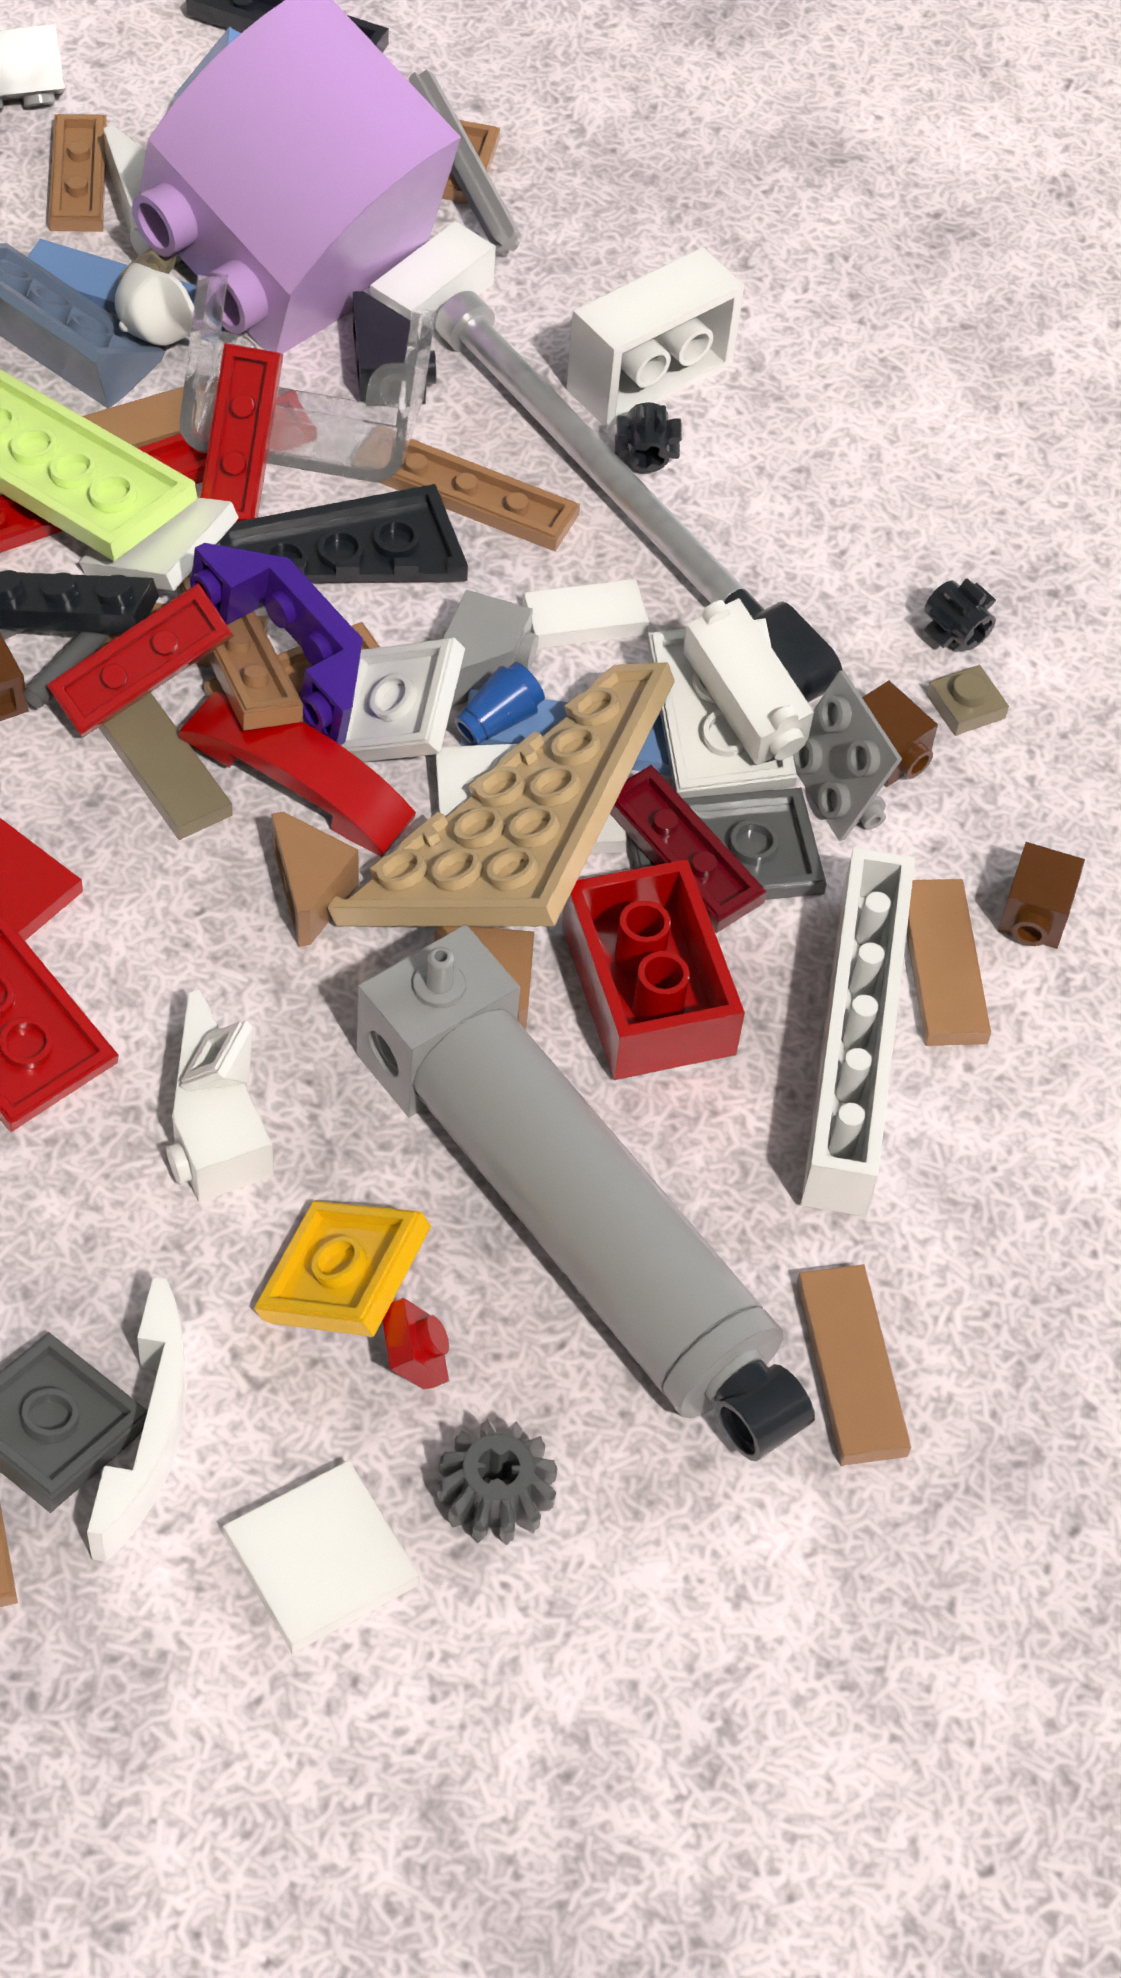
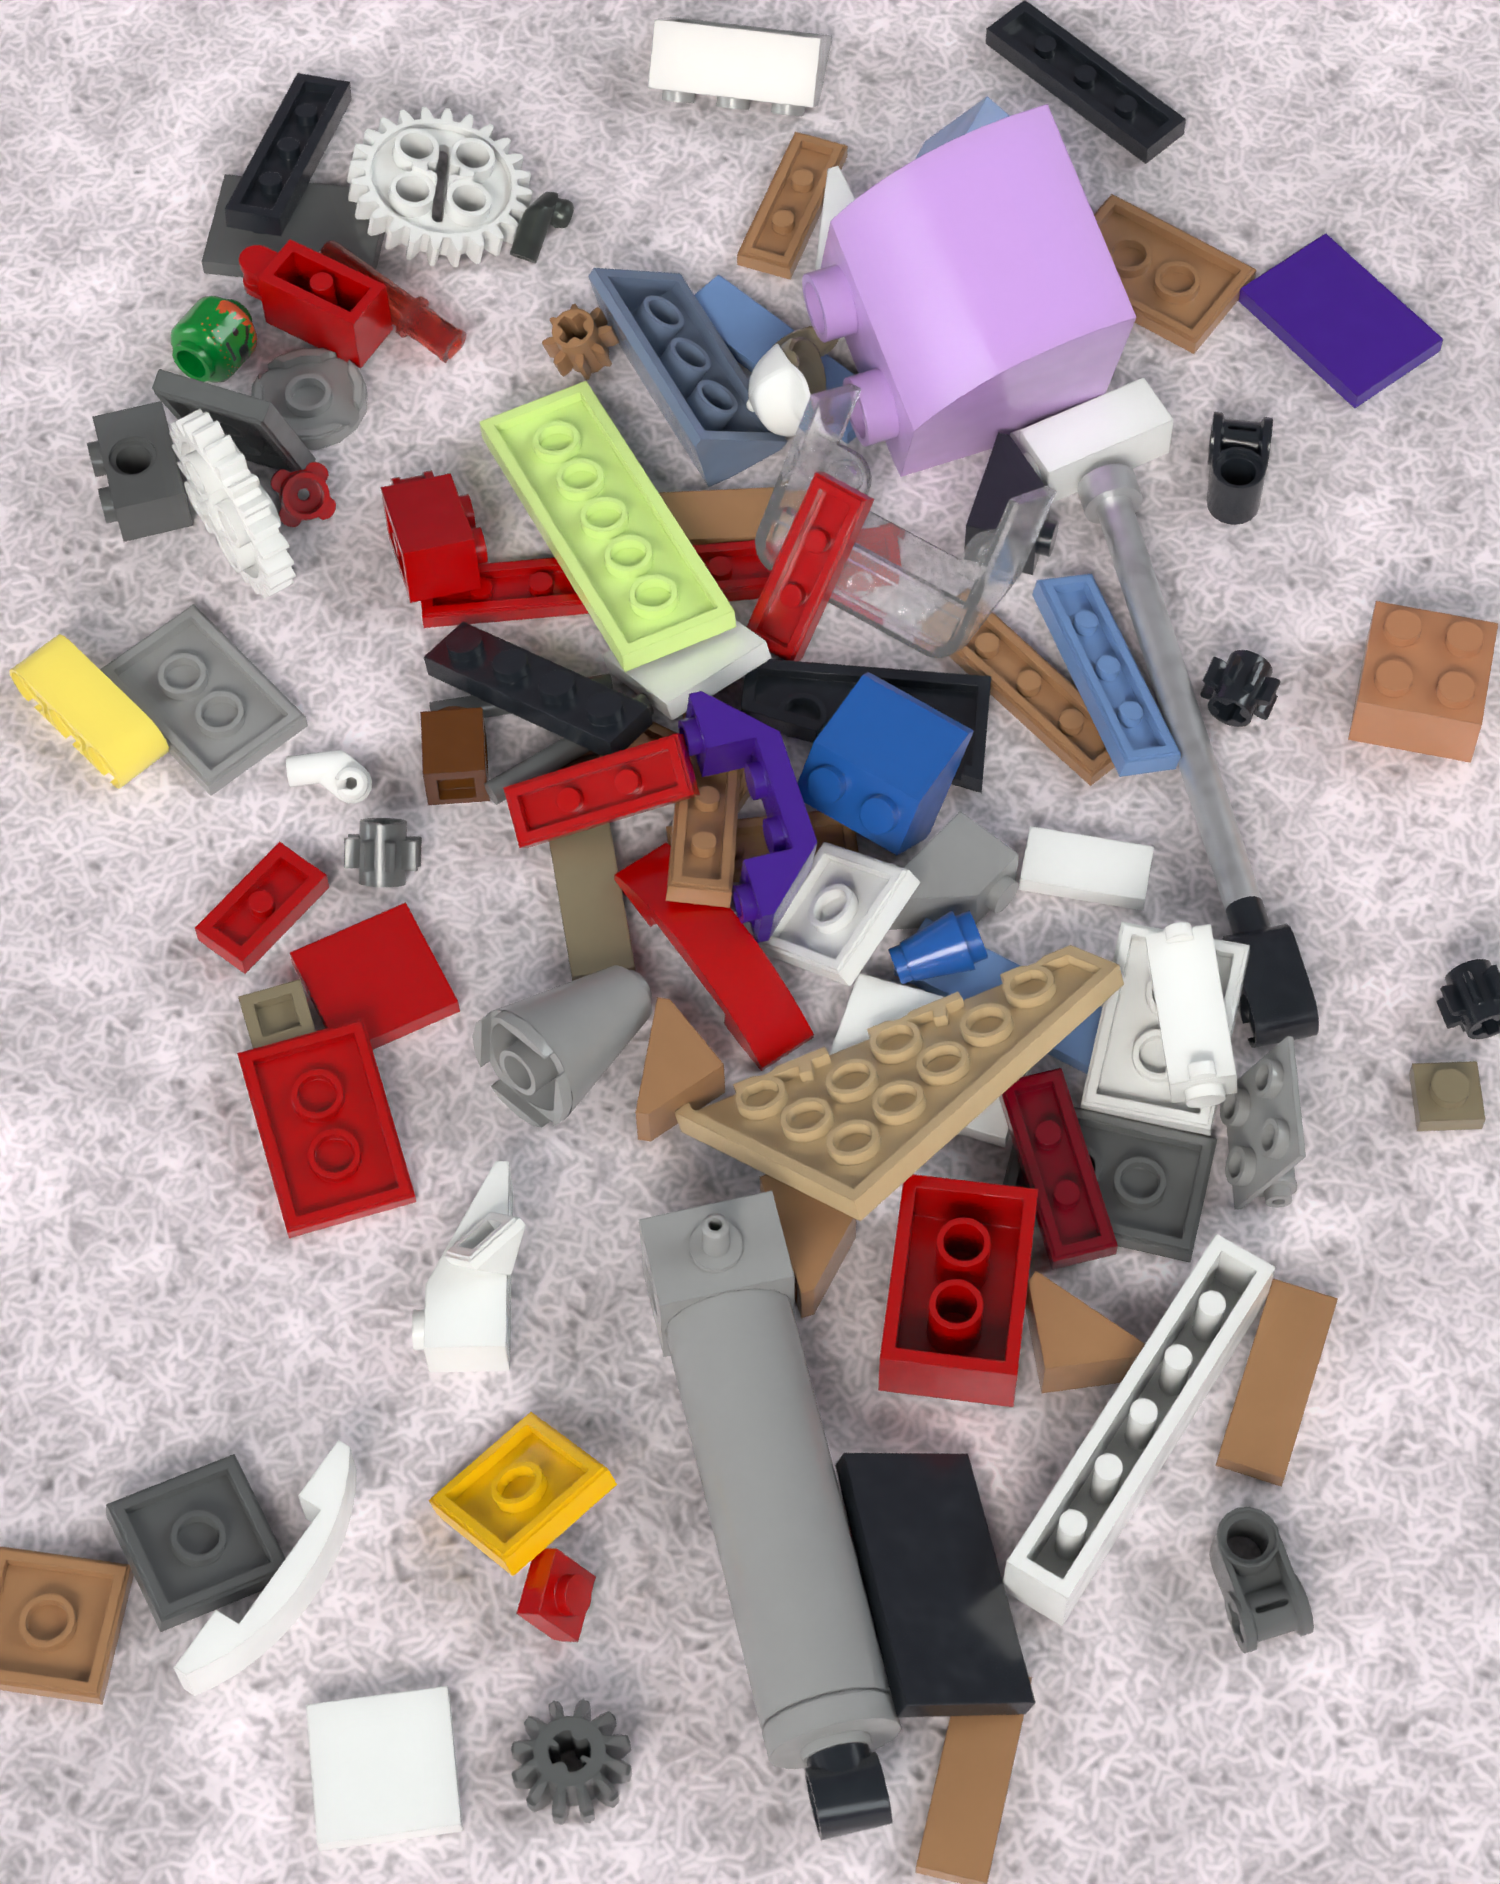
camera: 30 degrees right, 5 degrees up
(194, 883) = (561, 1041): none -> light grey cone
(385, 567) = (884, 764): none -> blue slope
(471, 173) = (1191, 305): light grey axle -> none
(530, 458) = (1106, 675): none -> medium blue tile
(558, 273) = (1237, 467): none -> black piece
(586, 150) = (1340, 320): none -> dark purple tile
(654, 336) = (1292, 575): white brick -> none
(752, 1214) = (934, 1585): none -> black tile
(774, 980) = (1073, 1341): none -> medium nougat slope
(794, 392) = (1423, 681): none -> nougat brick
(906, 727) = (1338, 1112): reddish brown brick -> none
(1016, 1121) = (1259, 1593): none -> dark grey piece
(1041, 896) = (1408, 1348): reddish brown brick -> none

